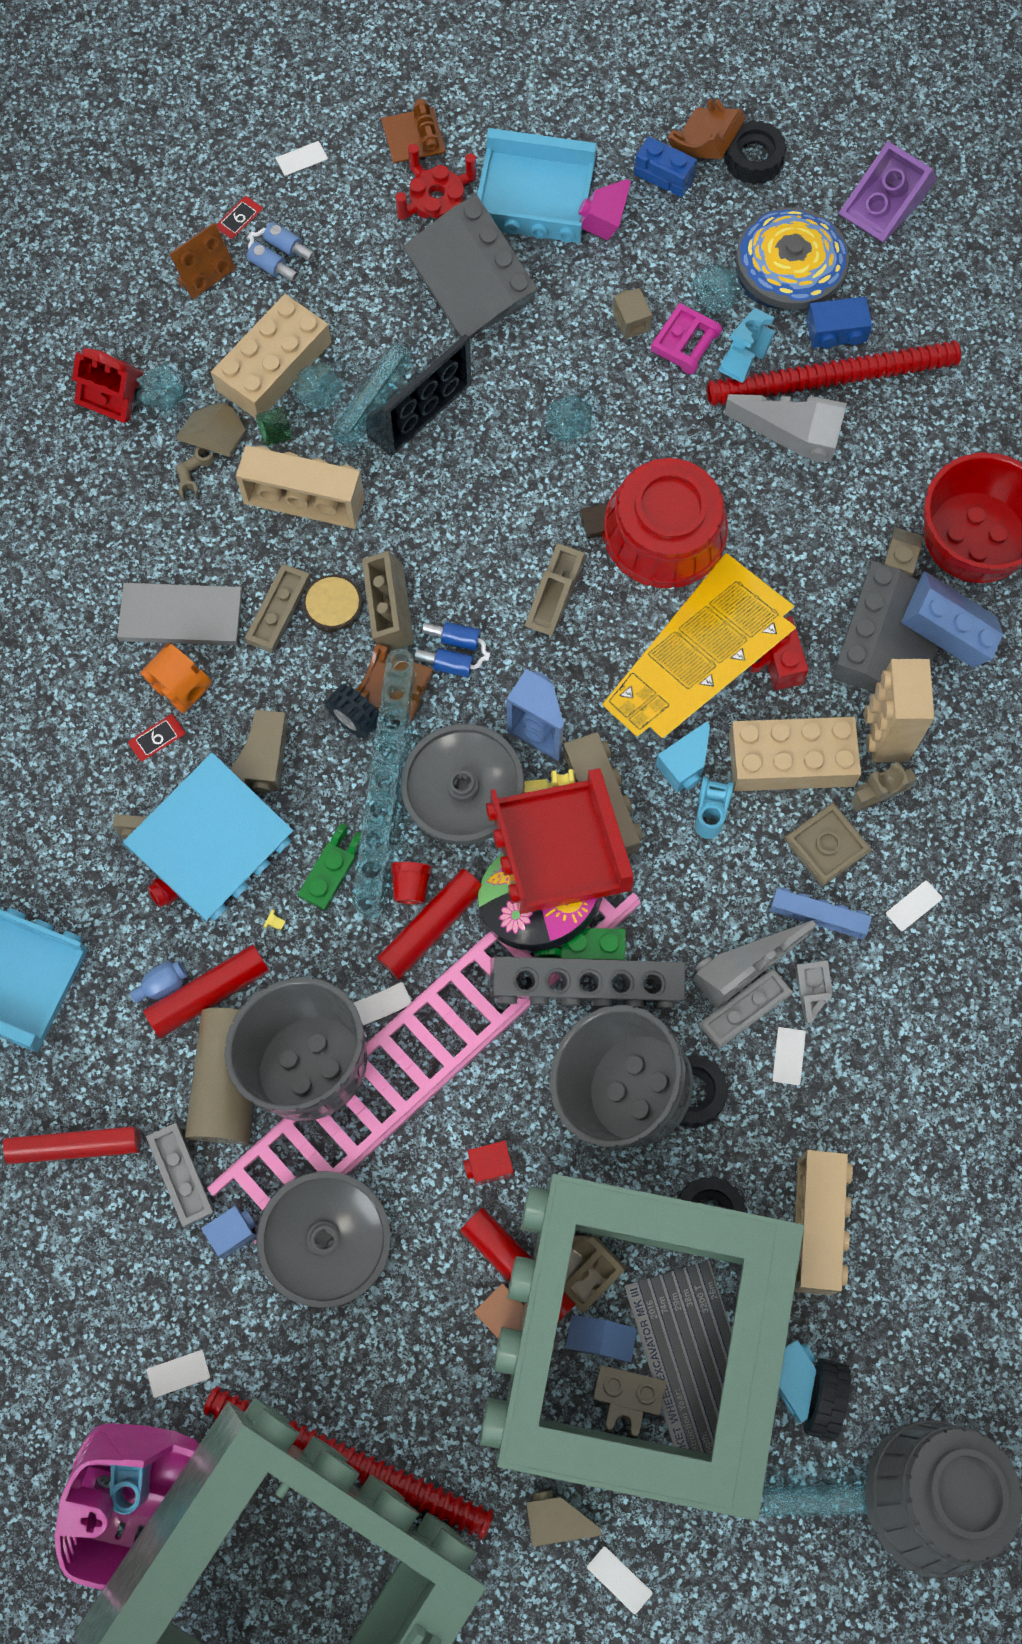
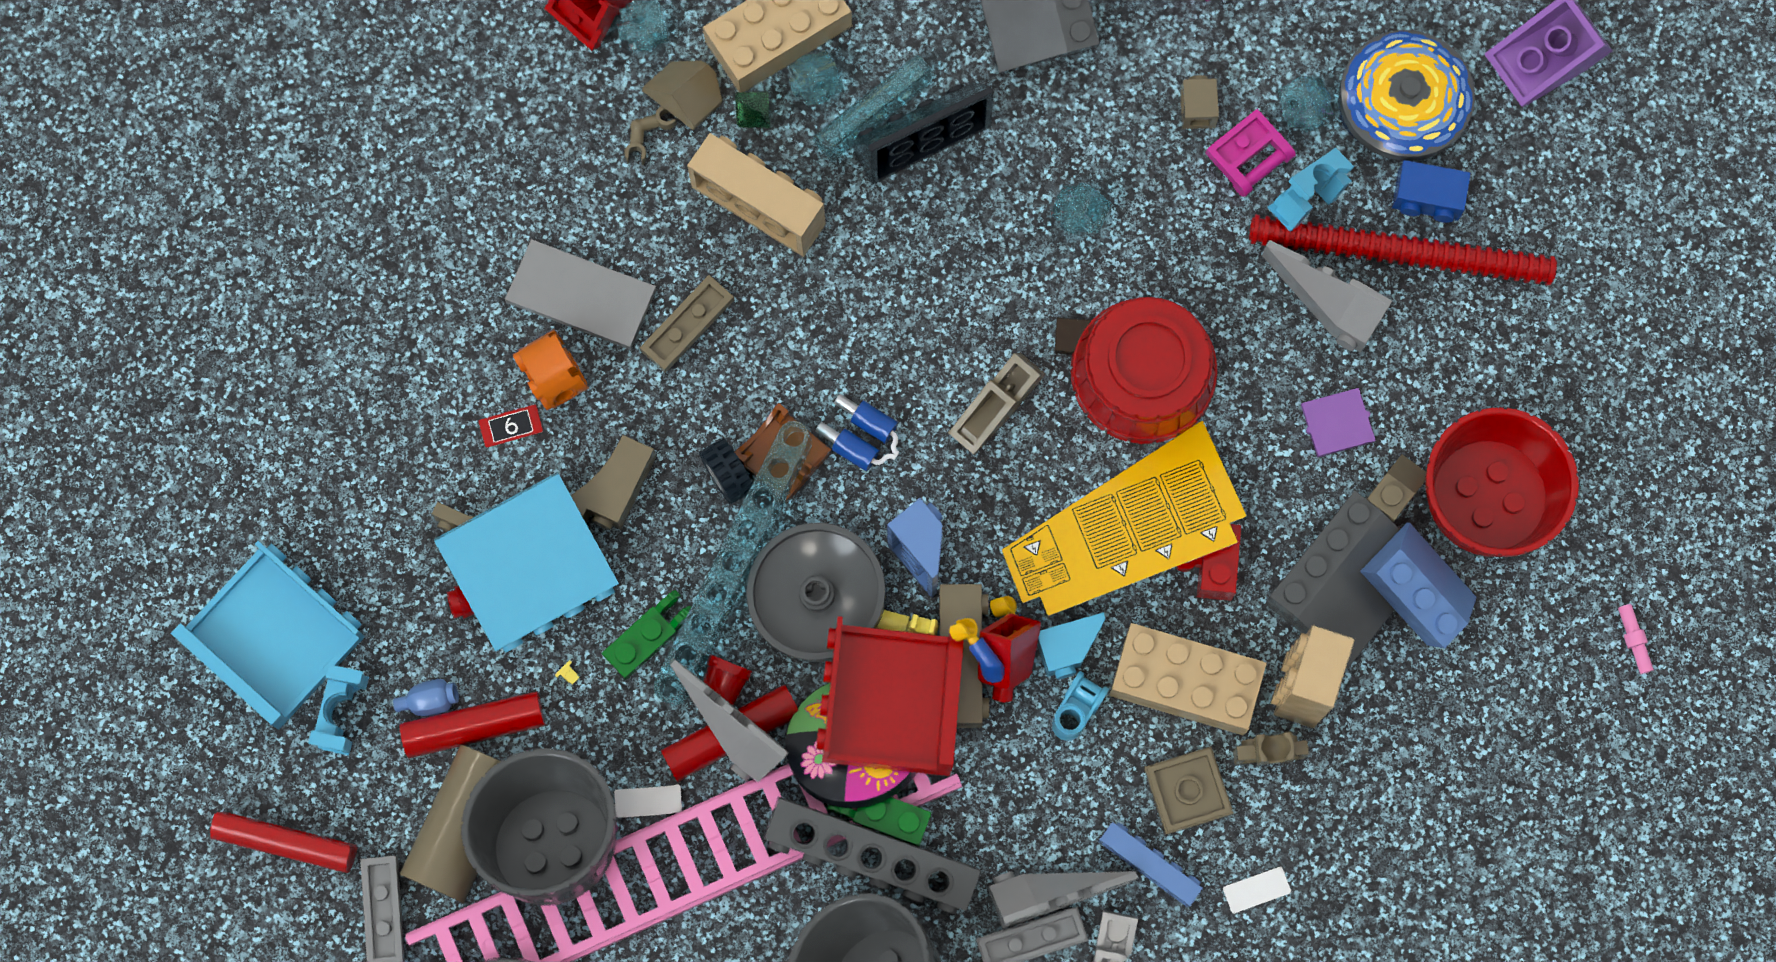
camera: 20 degrees right, 5 degrees up
(81, 995) = (340, 687): none -> medium azure piece
(332, 603) = (748, 337): pearl gold tile -> none
(387, 601) = (807, 358): dark tan brick -> none
(446, 923) = (742, 740): none -> light grey wedge
(636, 773) = (1003, 648): none -> red torso
(834, 519) = (1338, 422): none -> medium lavender piece

